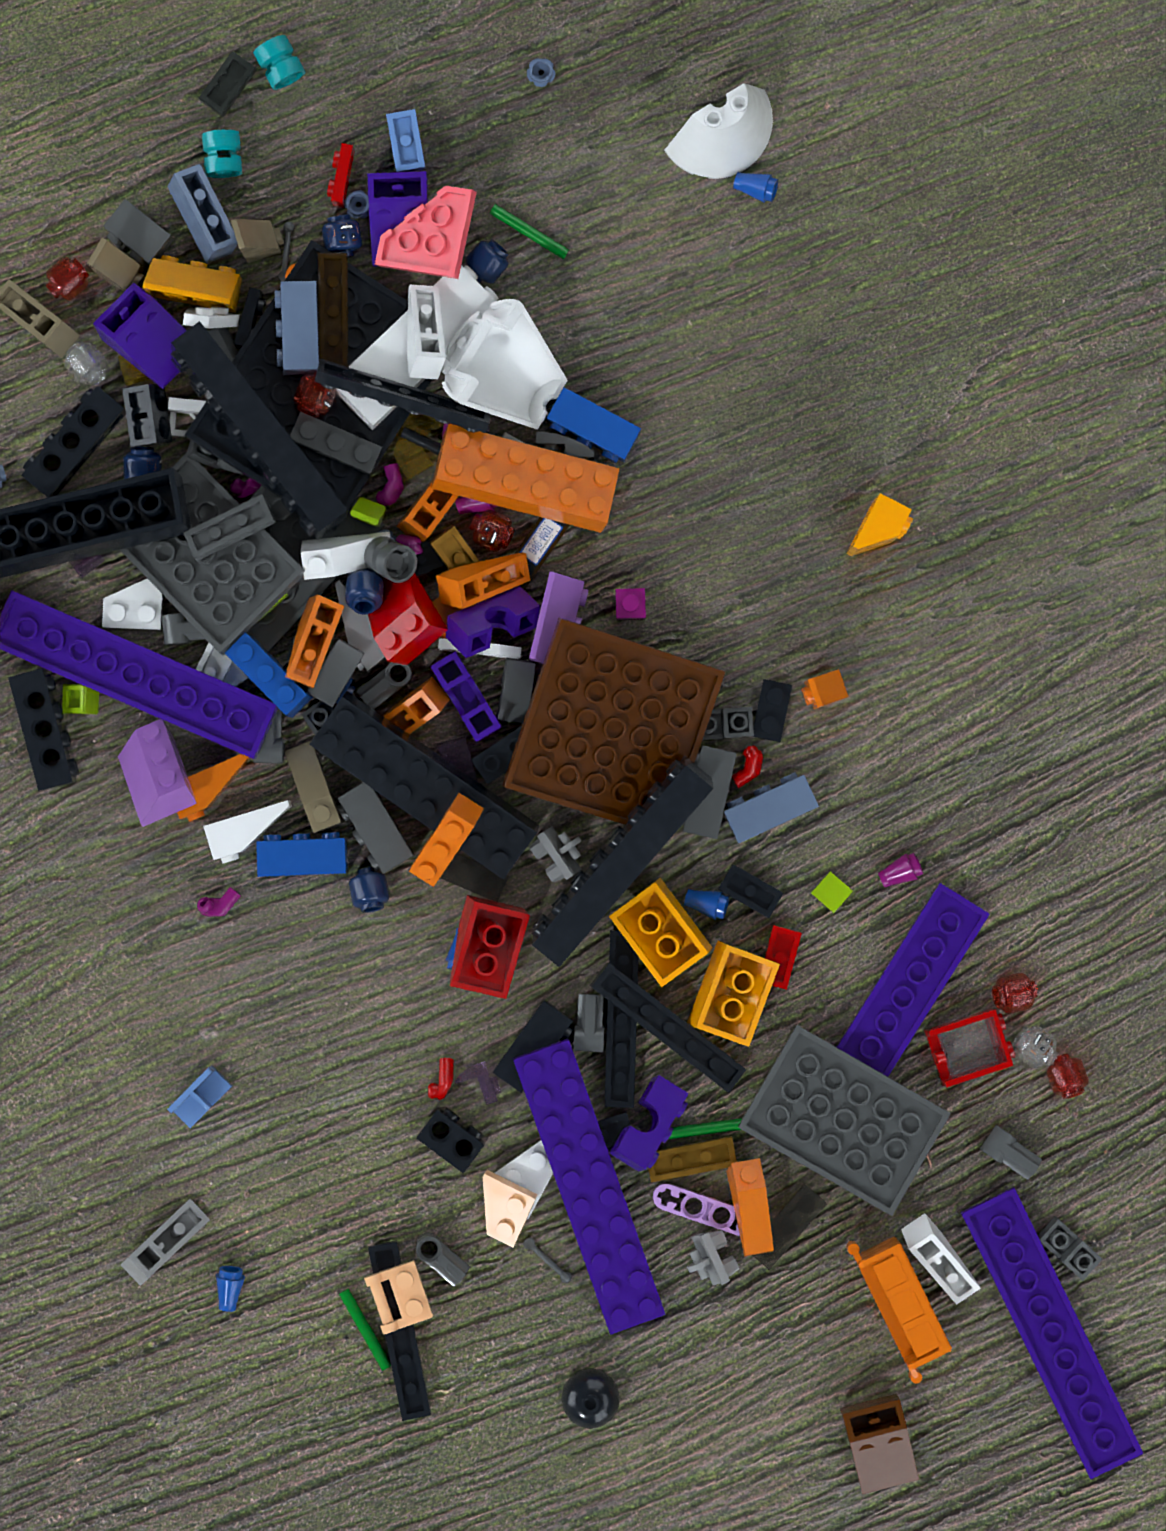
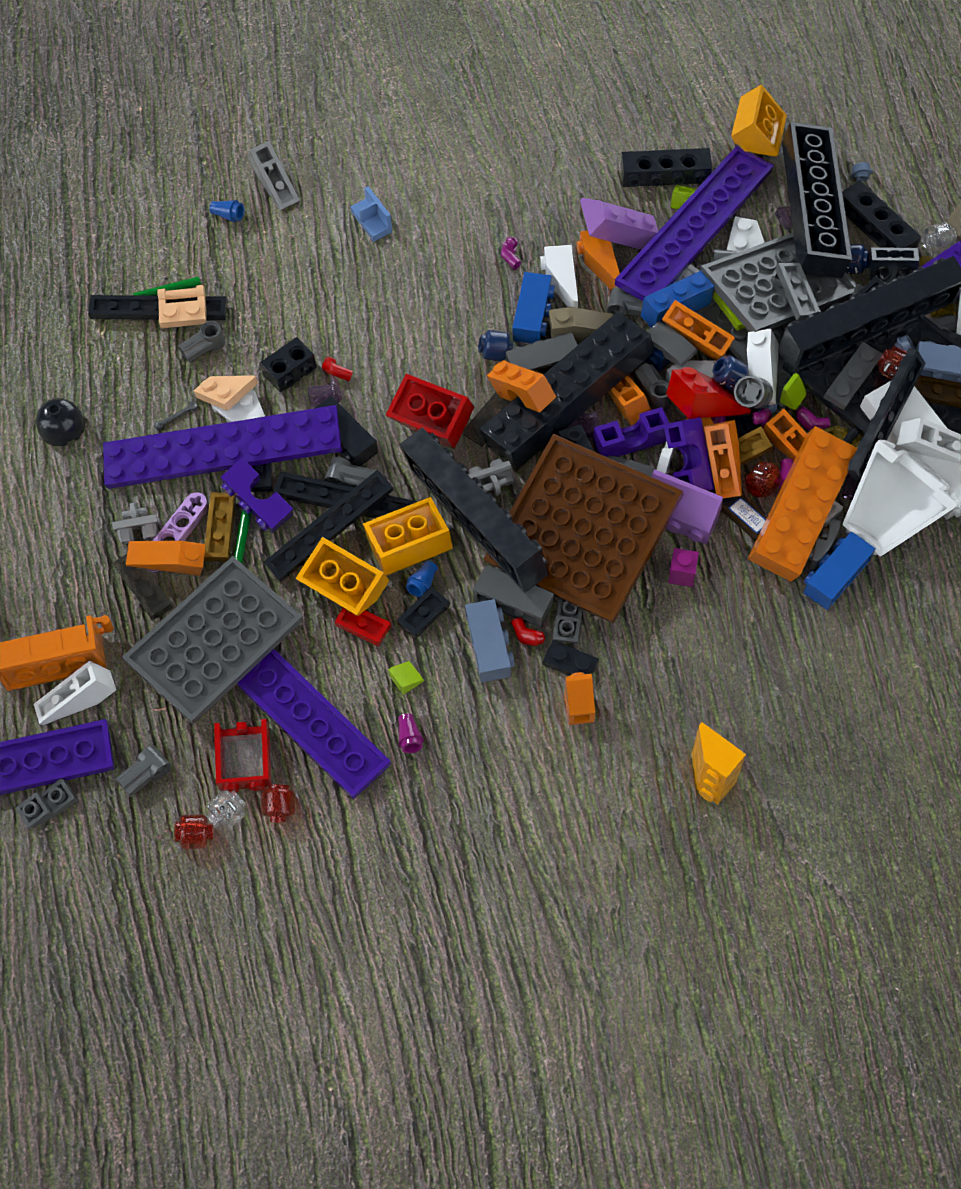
camera: 100 degrees right, 25 degrees down
(284, 386) = (904, 343): none -> sand blue plate

